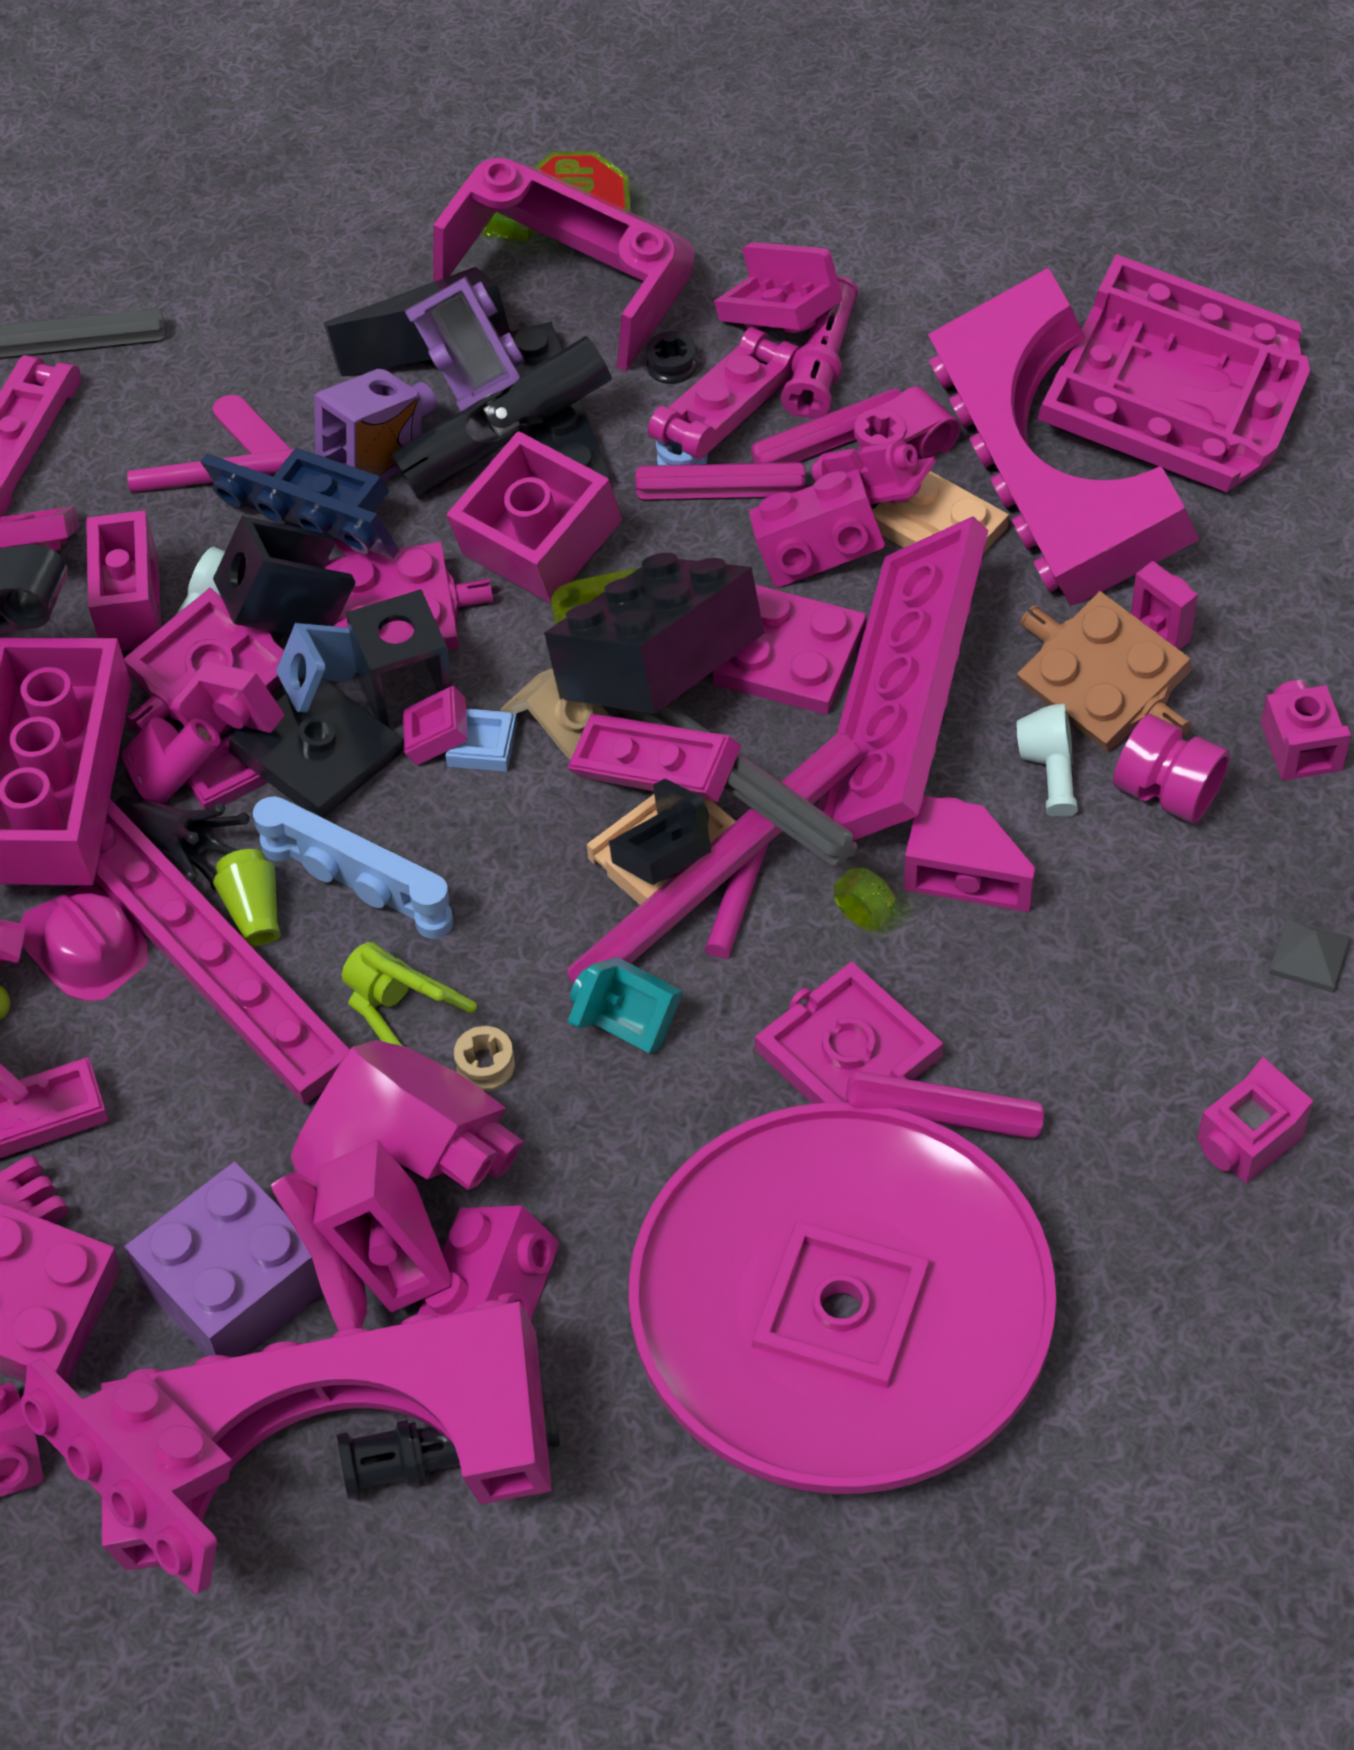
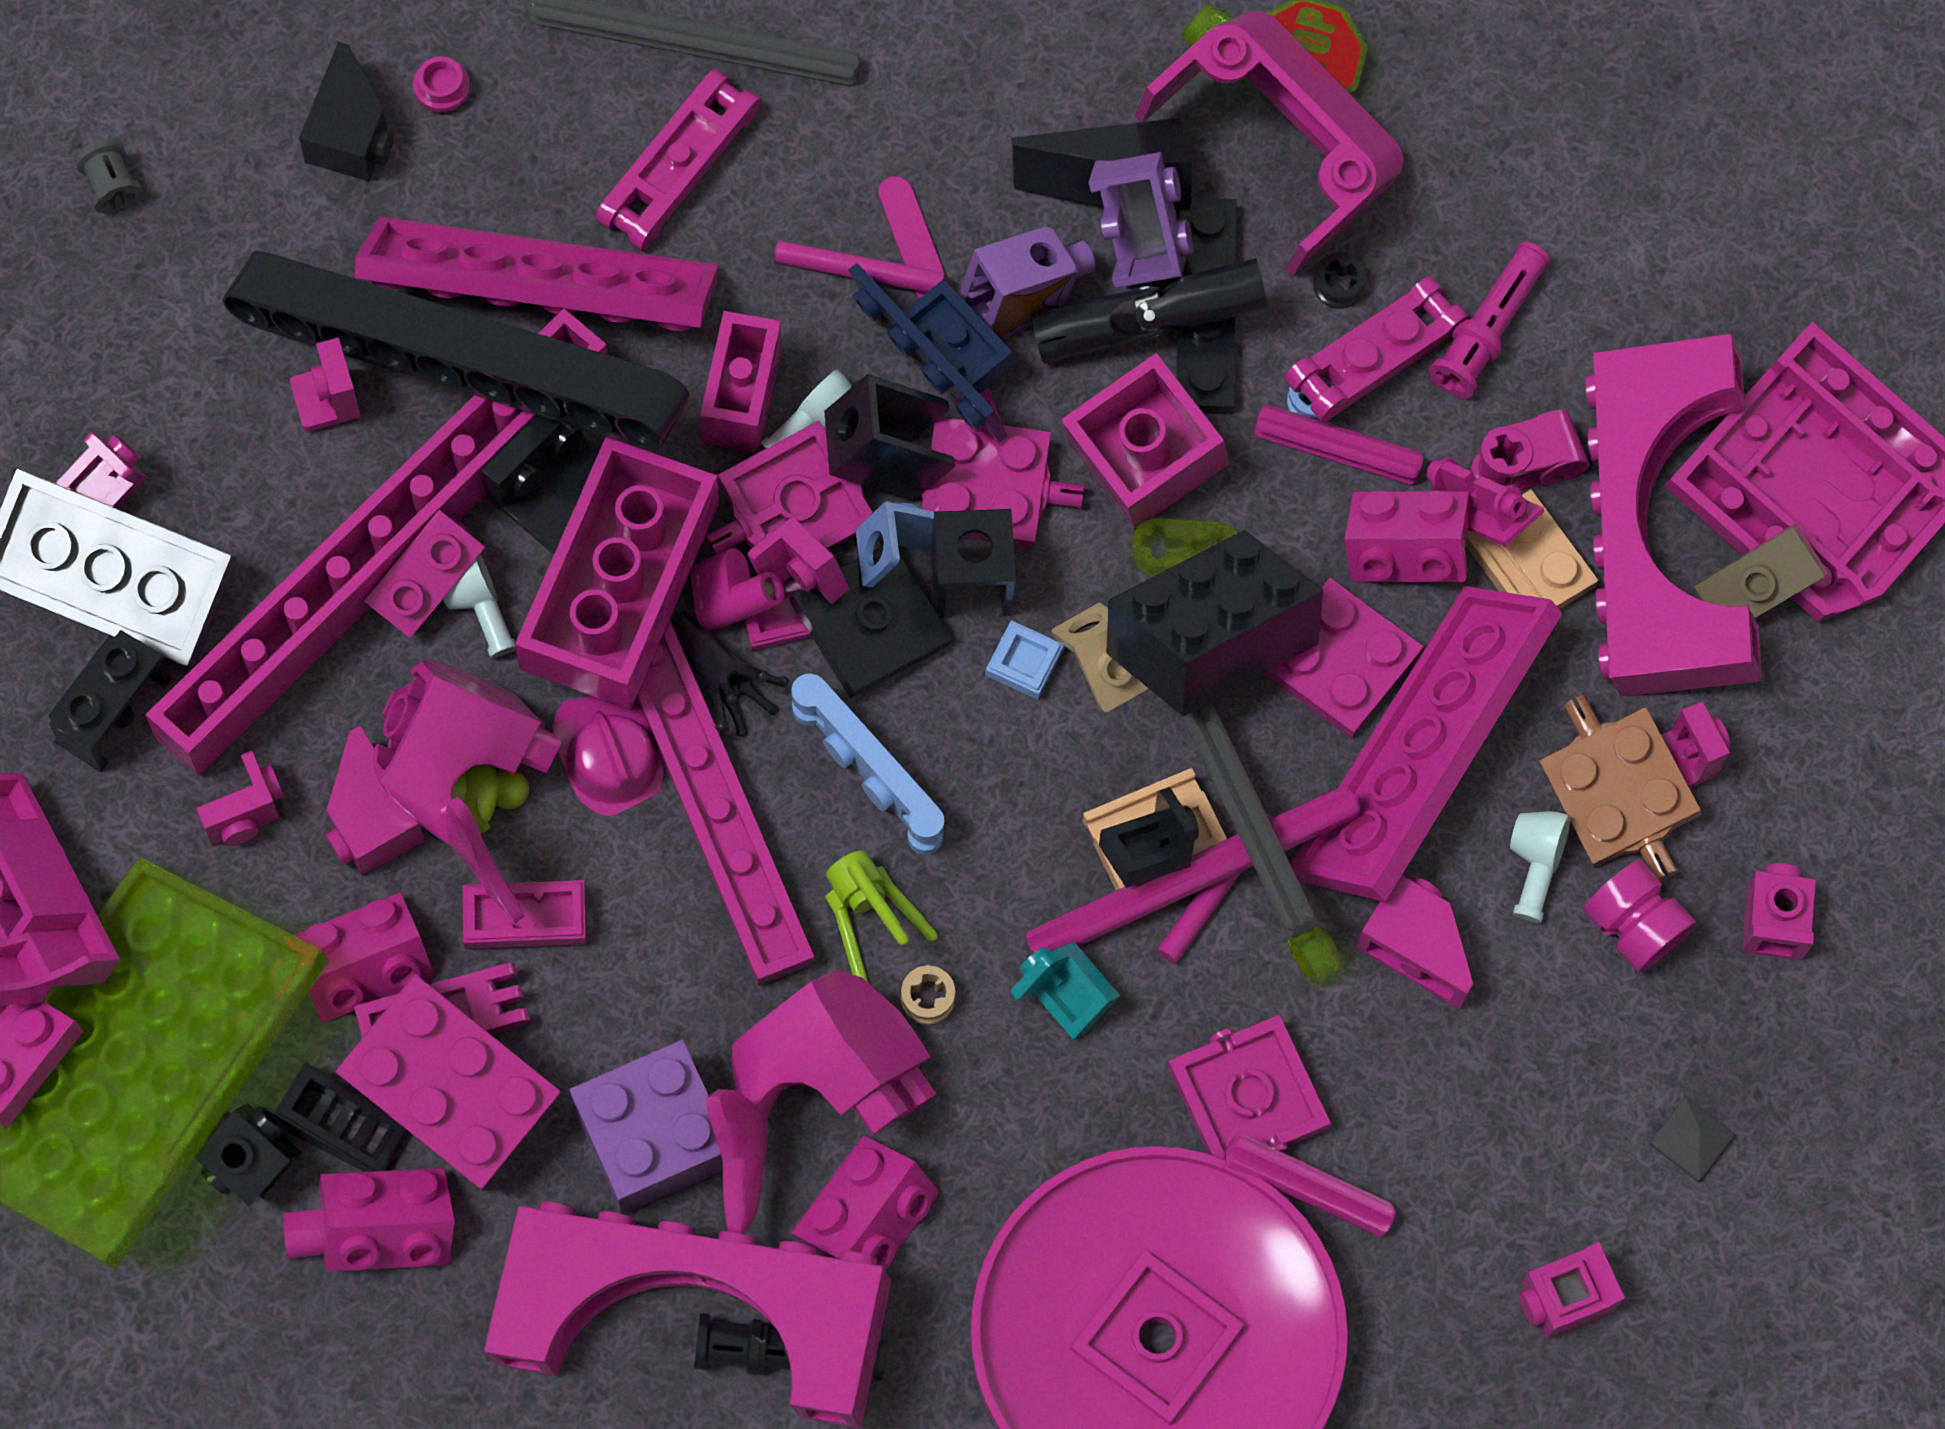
camera: 10 degrees right, 15 degrees up
(138, 1457) = (534, 1291): dark pink bracket -> none
(249, 893) = (767, 761): lime cone -> none
(380, 1226) = (788, 1146): dark pink slope -> none
(435, 725) = (985, 635): dark pink tile -> none
(645, 753) = (1171, 749): dark pink tile -> none
(784, 288) = (1470, 246): dark pink bracket -> none
(816, 435) = (1458, 420): dark pink axle -> none
(1173, 441) = (1765, 574): none -> dark tan plate

